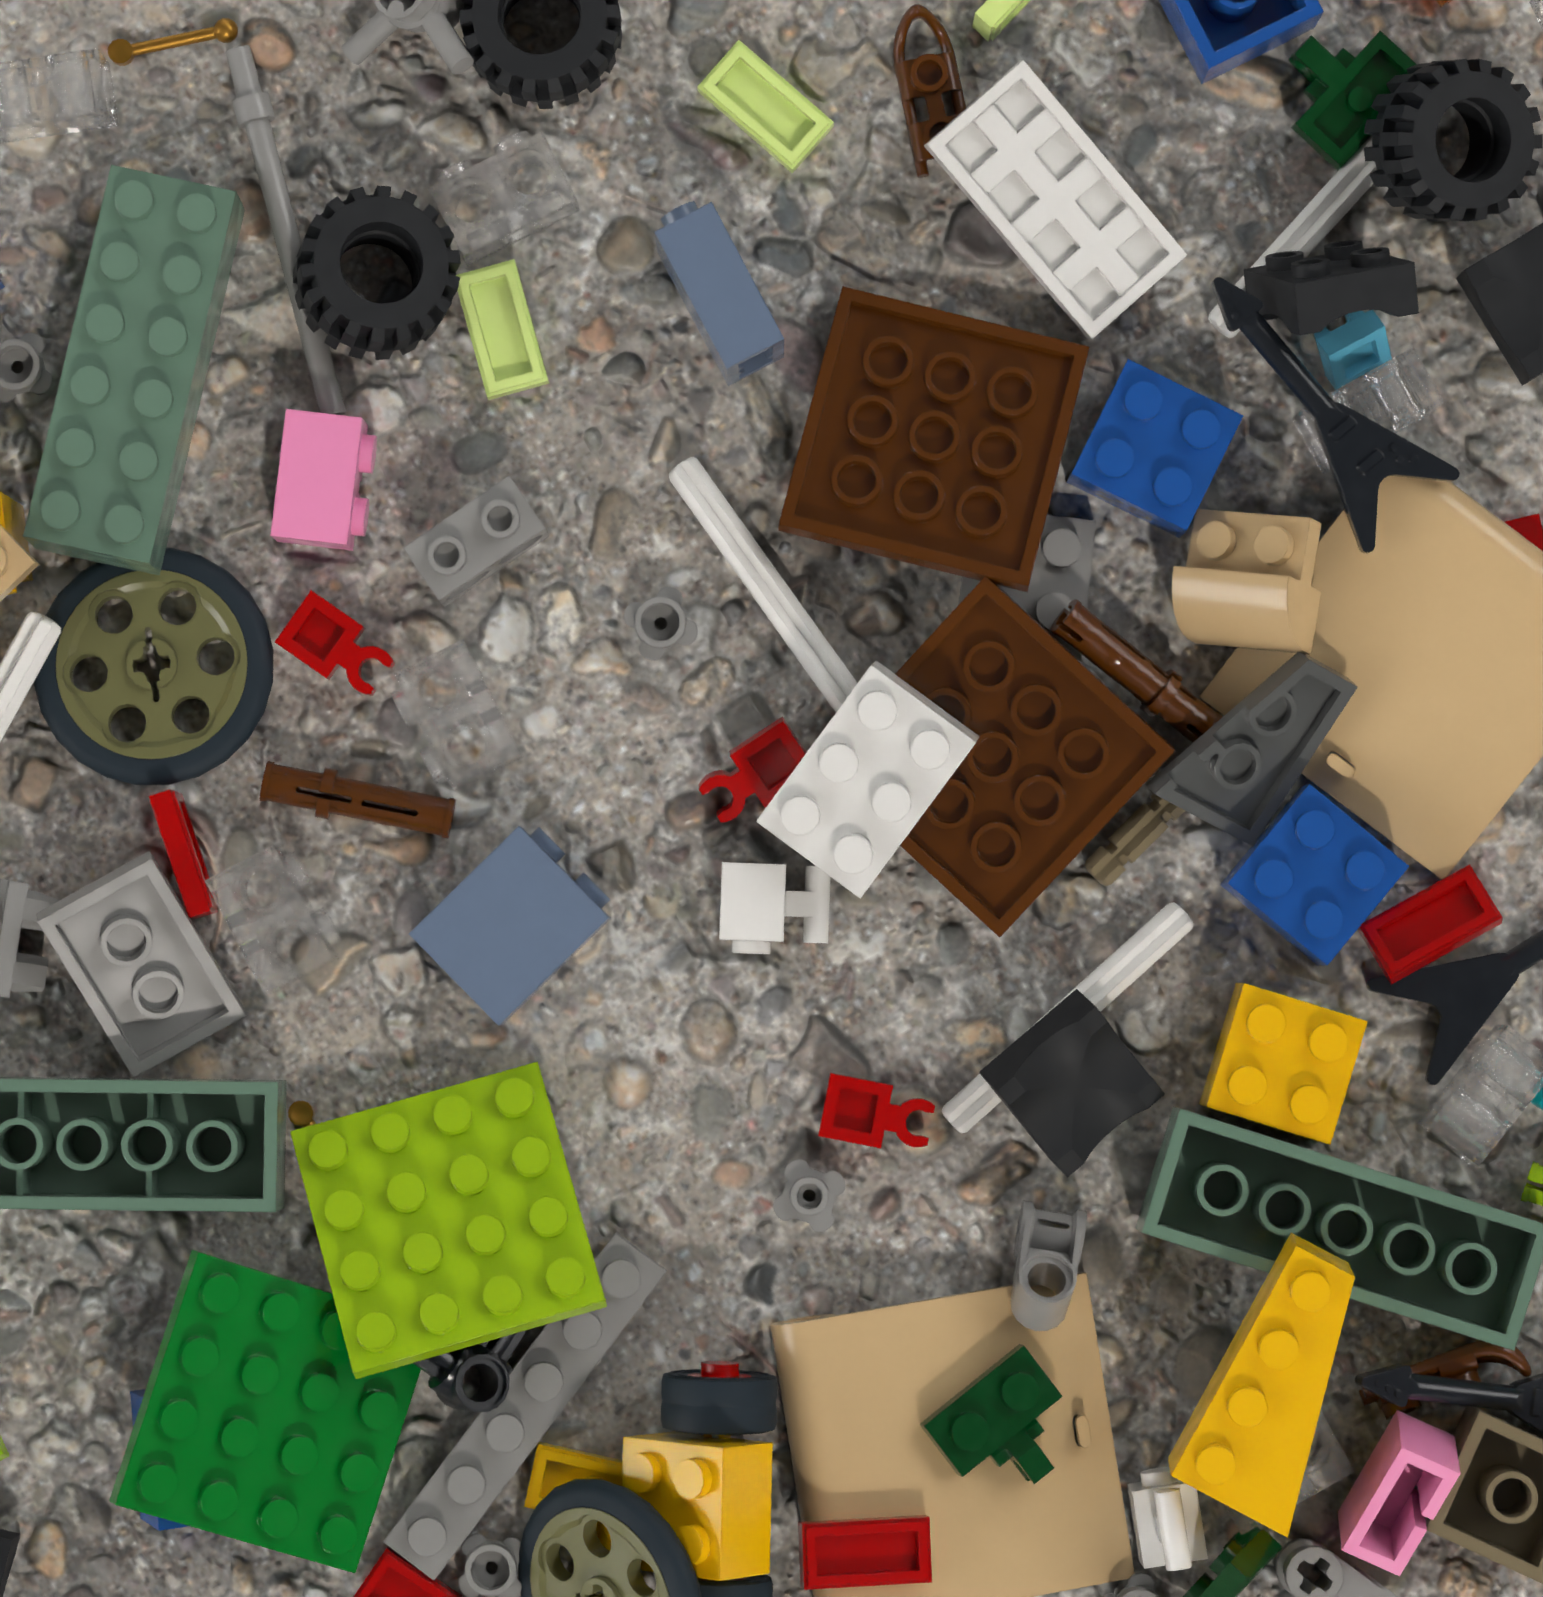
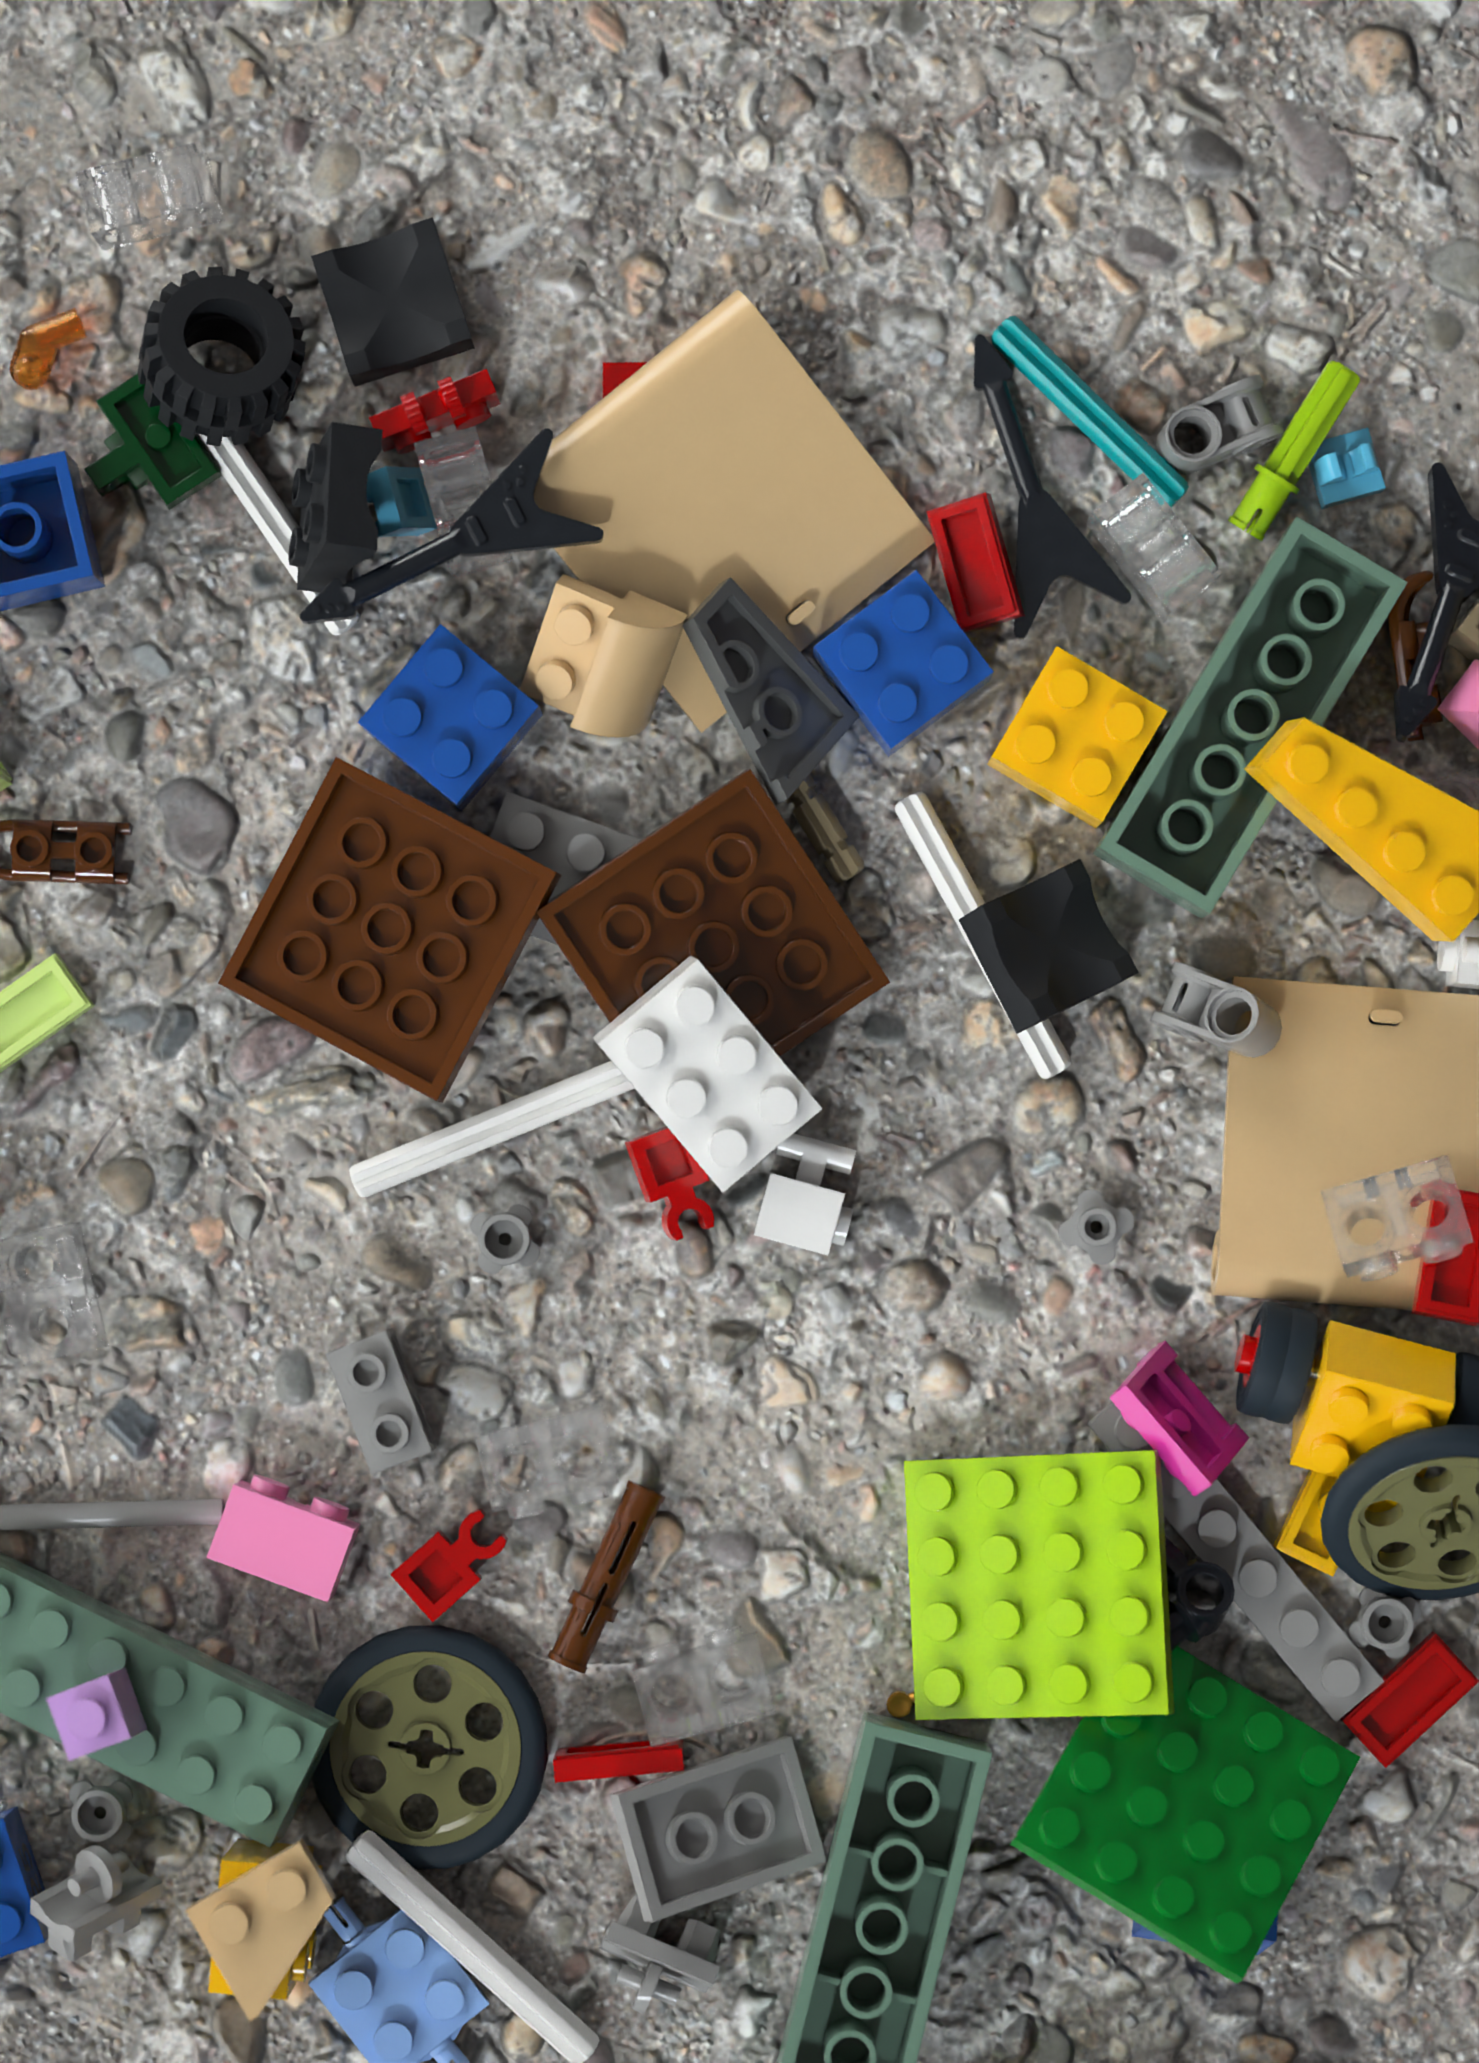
camera: 75 degrees left, 0 degrees up
(112, 338) = (96, 1714): none -> lavender brick
(390, 224) = (53, 1405): black tyre -> none
(501, 330) = (178, 1327): yellowish green tile -> none
(512, 923) = (763, 1453): sand blue brick -> none
(640, 1318) = (1178, 1420): none -> dark pink plate
(718, 291) = (194, 1105): sand blue brick -> none
(861, 1112) = (1027, 1156): red plate -> none
(903, 1478) = (1393, 1200): none -> clear brick
(997, 1418) = (1355, 1096): dark green hinge -> none
(1055, 200) = (184, 755): white plate -> none
(1155, 689) = (686, 771): reddish brown pin -> none
(1464, 382) = (456, 403): none -> red hinge

